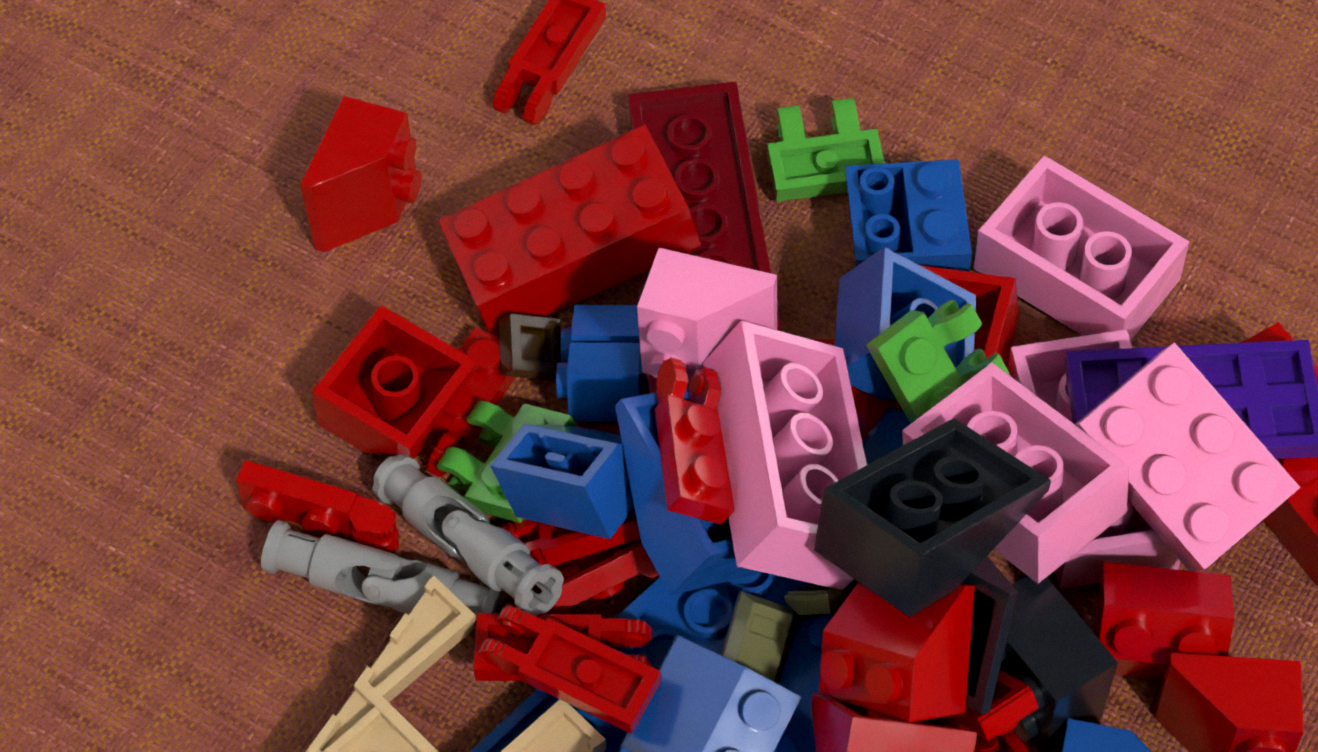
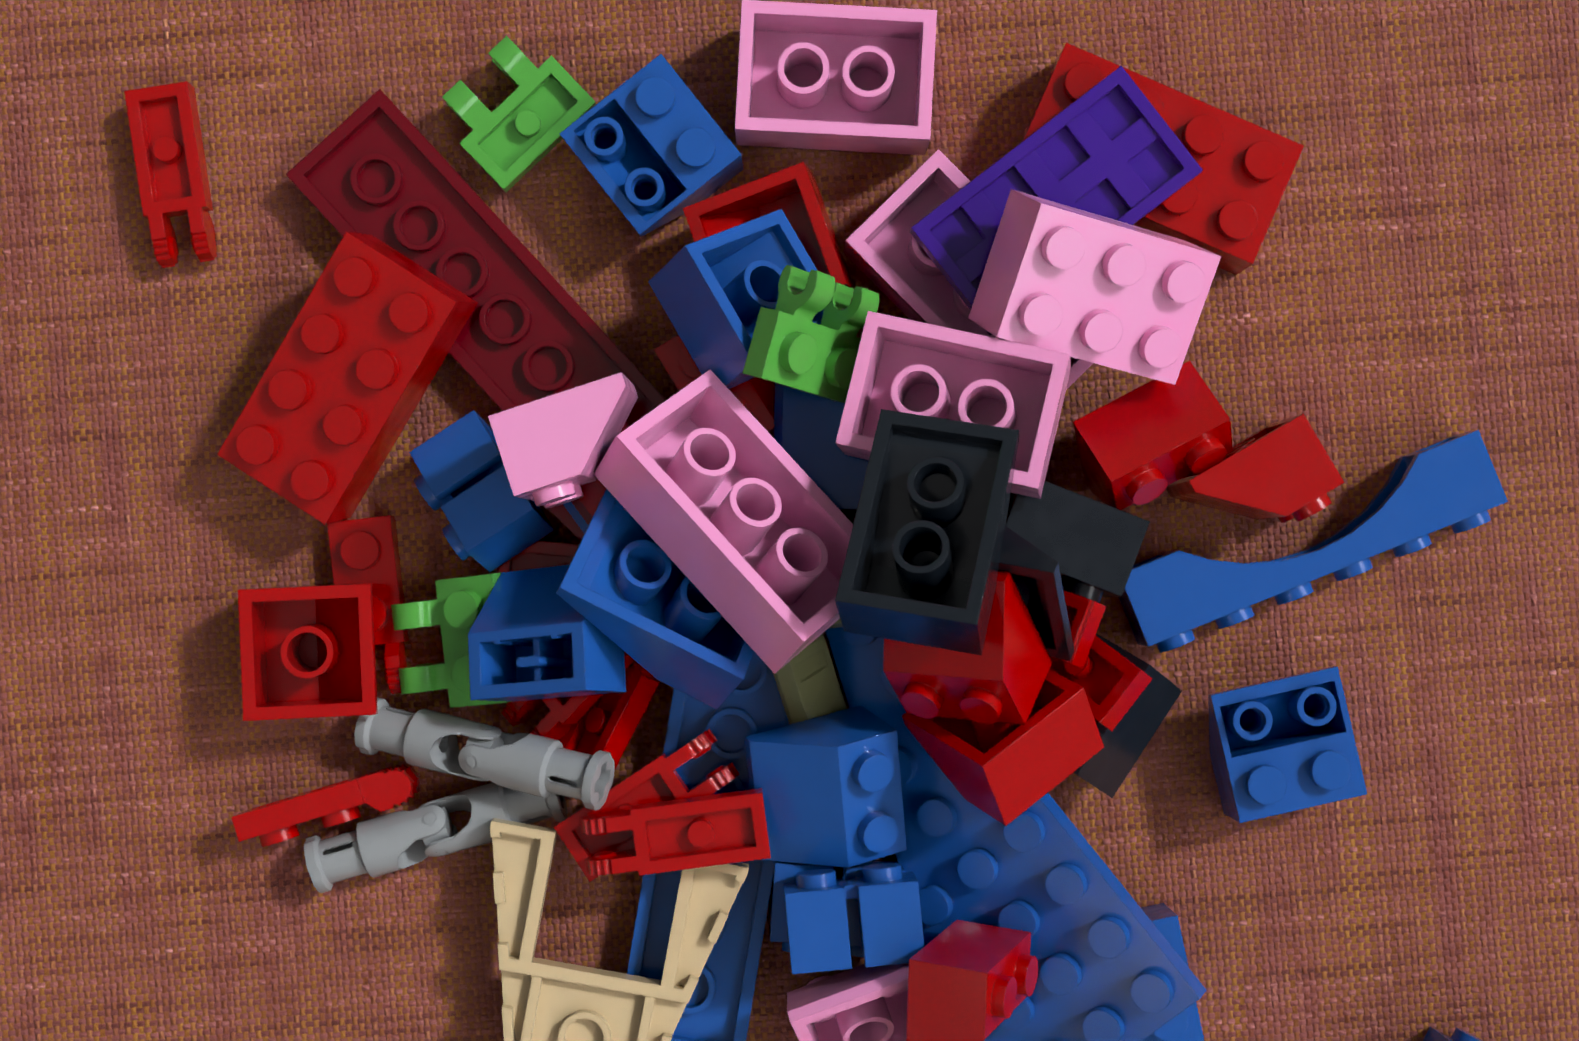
camera: 40 degrees left, 30 degrees up
(360, 174) = (100, 449): red slope -> none
(529, 346) = (395, 514): dark brown tile -> none
(692, 443) = (649, 577): red hinge -> none

